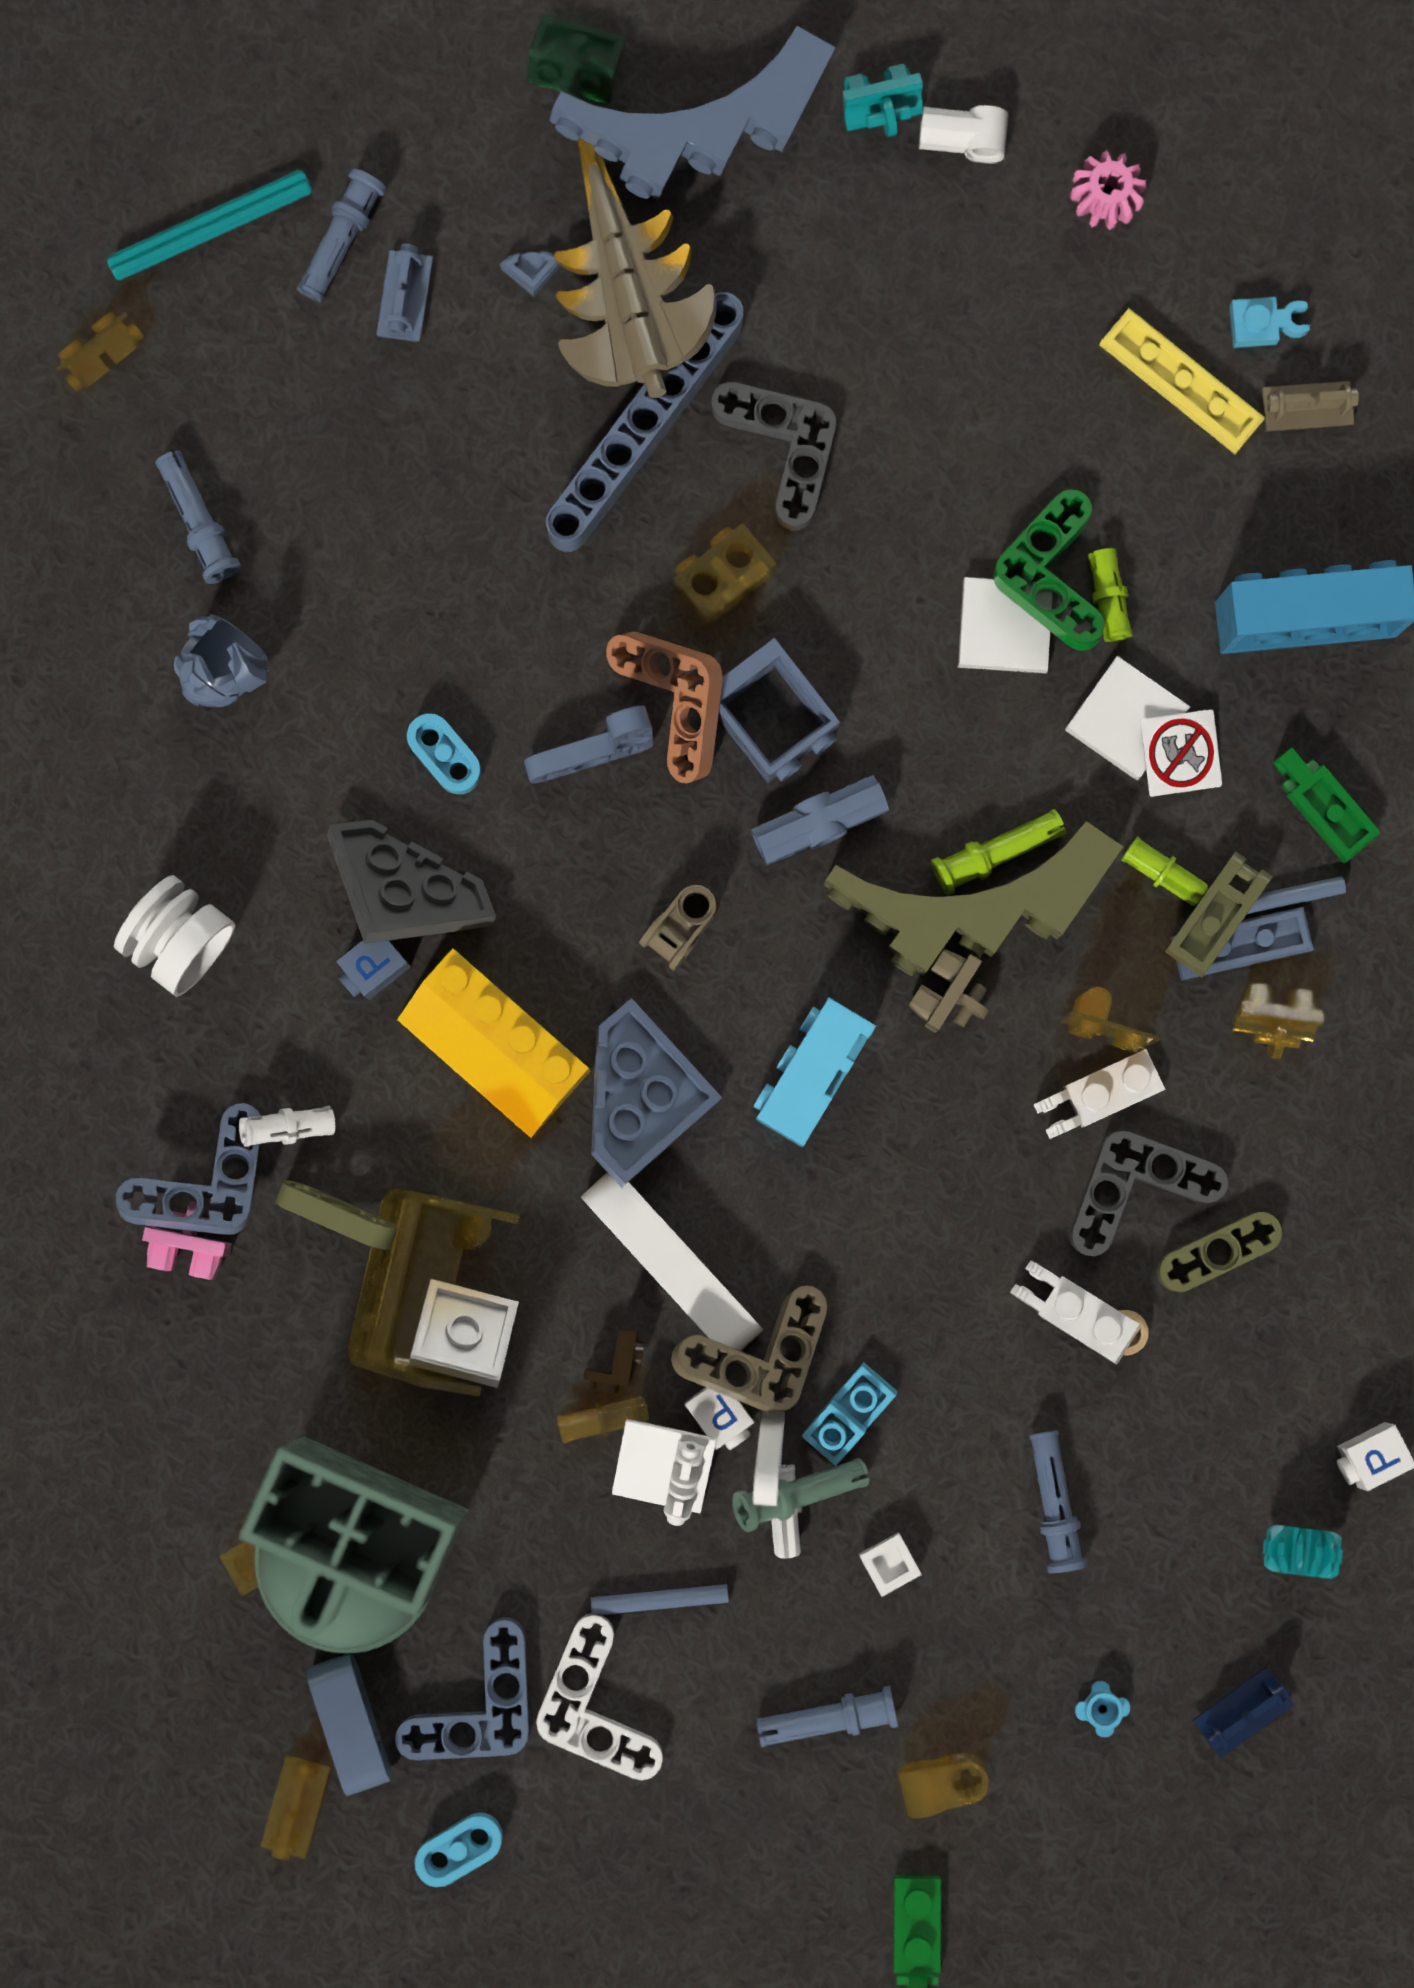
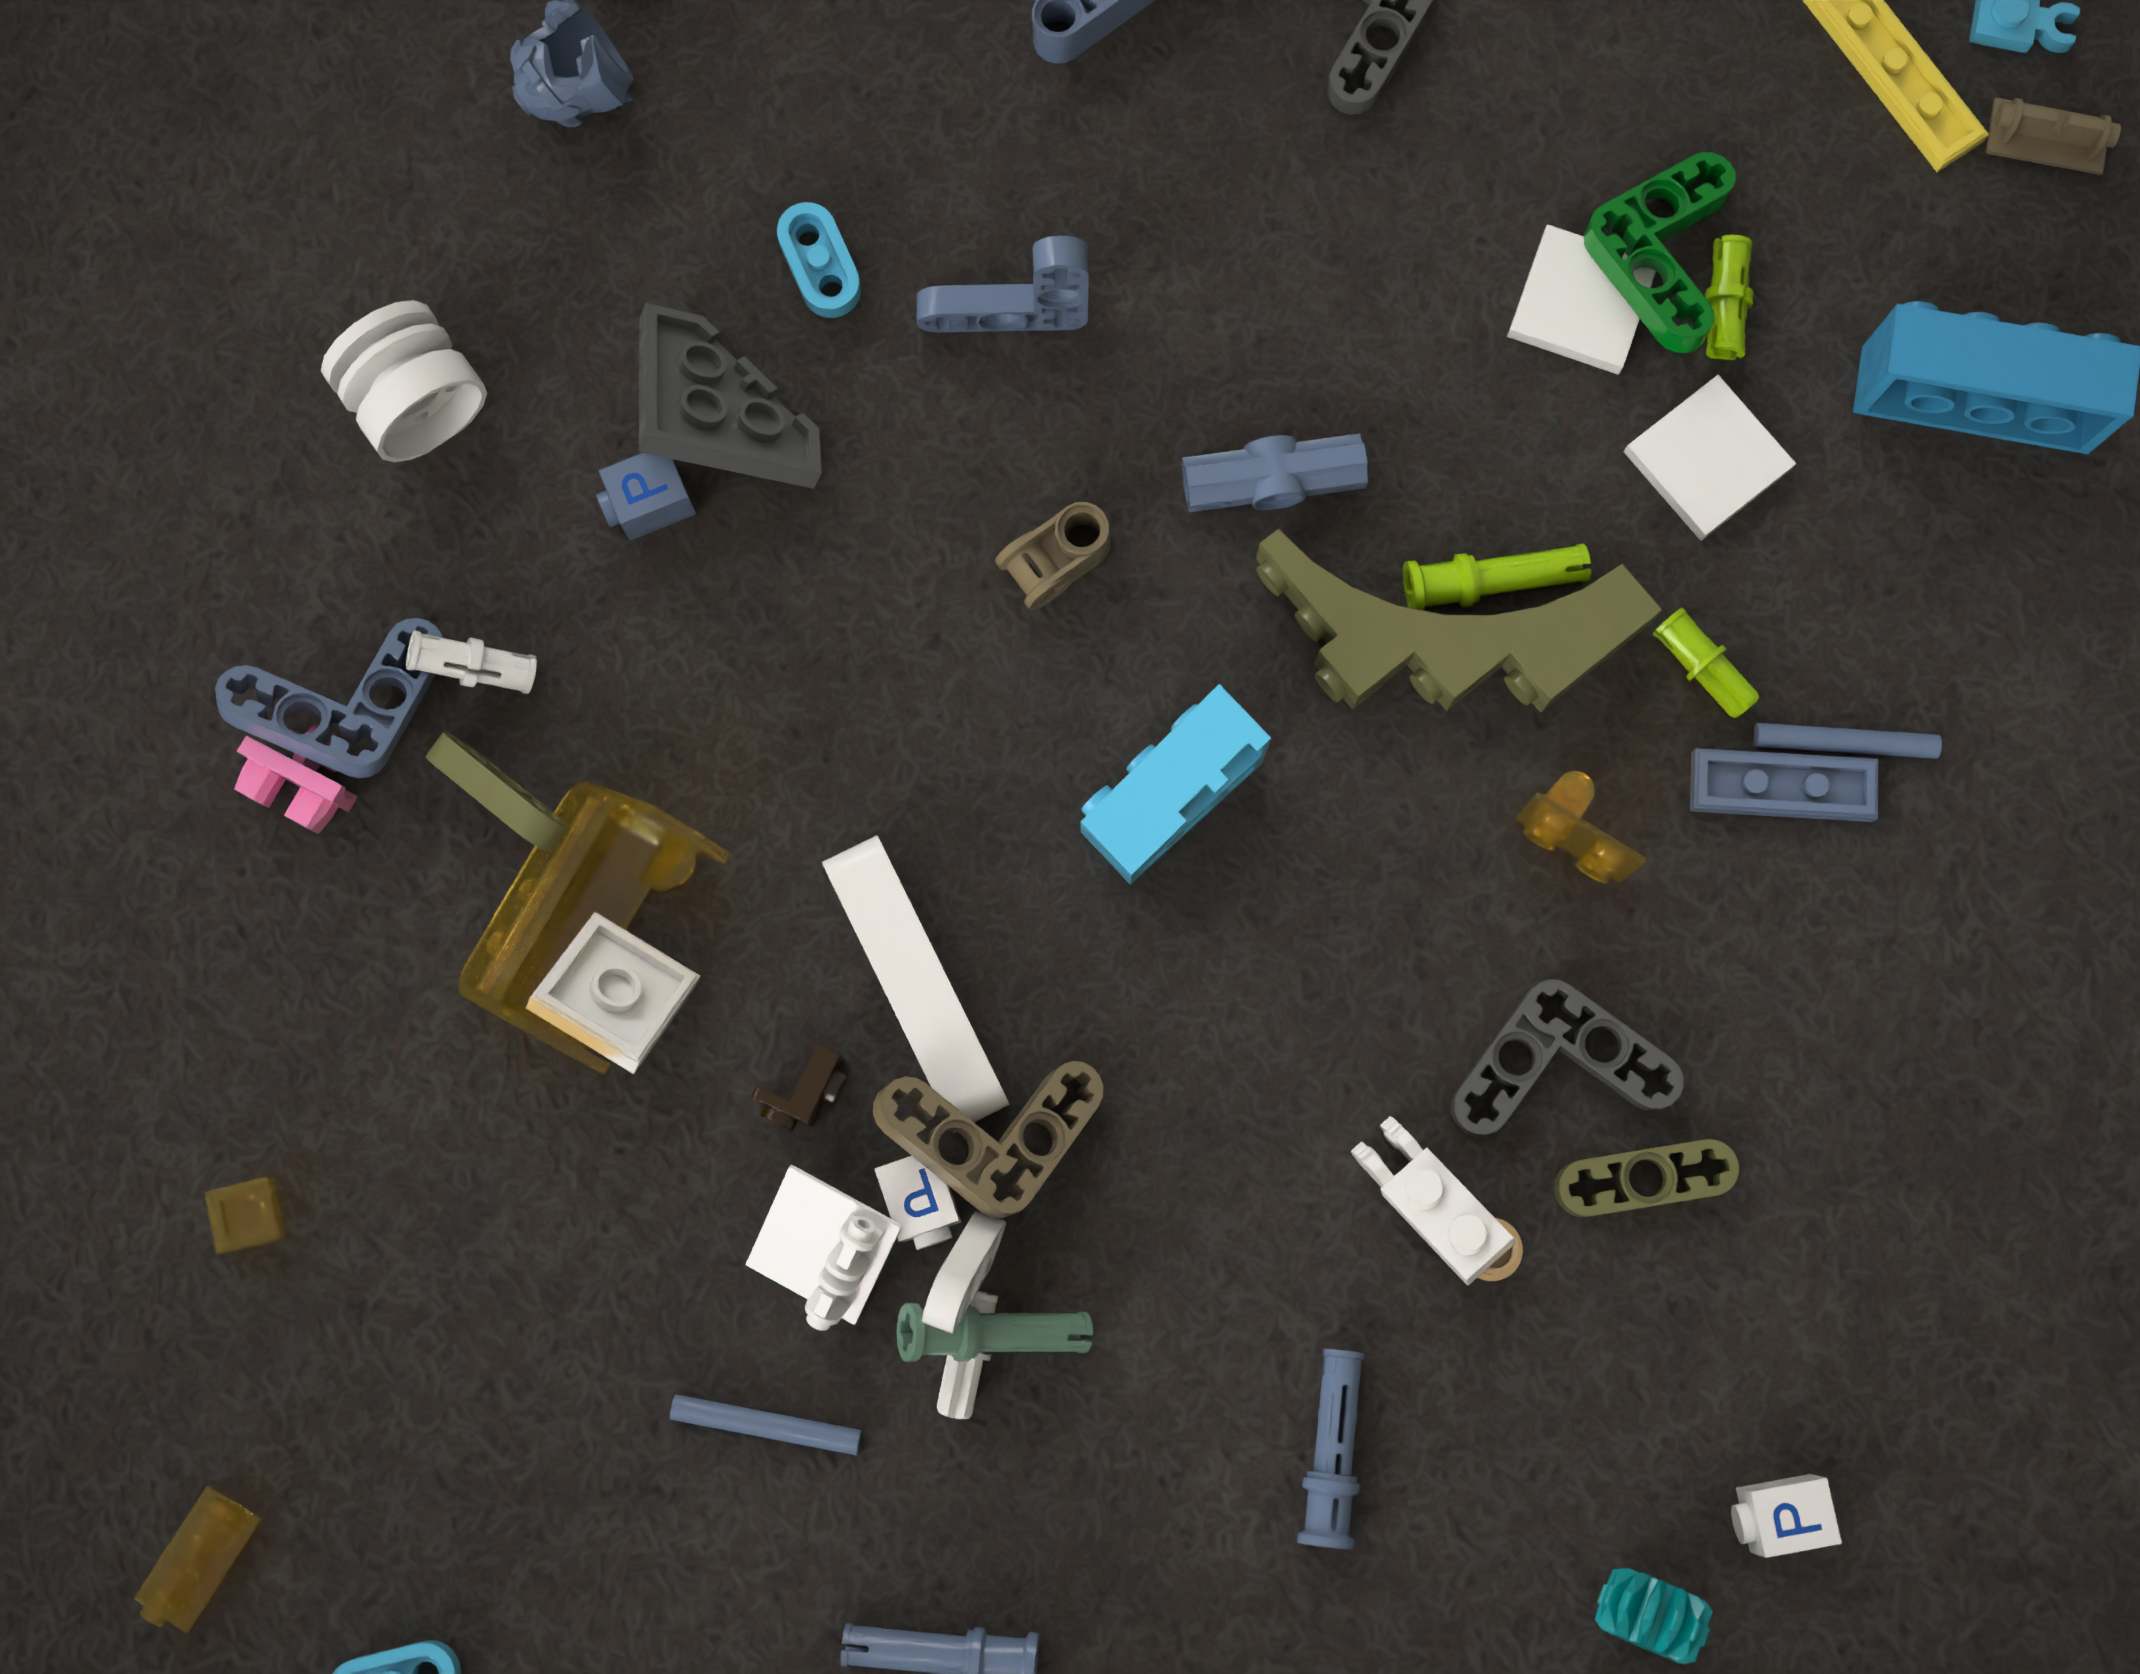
camera: 20 degrees right, 5 degrees down
(346, 1547) = (363, 1220): sand green piece -> none
(349, 1724) = (302, 1468): sand blue beam -> none
(483, 1722) = (482, 1520): sand blue beam -> none
(492, 1043) = (769, 634): yellow slope -> none
(584, 1720) = (615, 1556): white beam -> none
(601, 1419) = (759, 1160): clear yellow axle -> none
(641, 1093) = (940, 751): sand blue plate -> none
(688, 694) = (1151, 262): nougat beam -> none
(731, 582) = (1248, 149): clear yellow brick -> none
(749, 672) = (1231, 267): sand blue window -> none
(849, 1413) = (1091, 1250): medium azure slope -> none
(890, 1564) = (1086, 1467): white plate -> none
(959, 973) = (1399, 715): dark tan hips -> none
(1105, 1092) = (1548, 925): white hinge -> none
(1181, 752) = (1768, 519): sticker -> none
(1217, 915) = (1762, 735): olive plate -> none
(1278, 1024) = (1804, 896): clear yellow hips -> none
(1326, 805) = (1942, 637): green hinge -> none

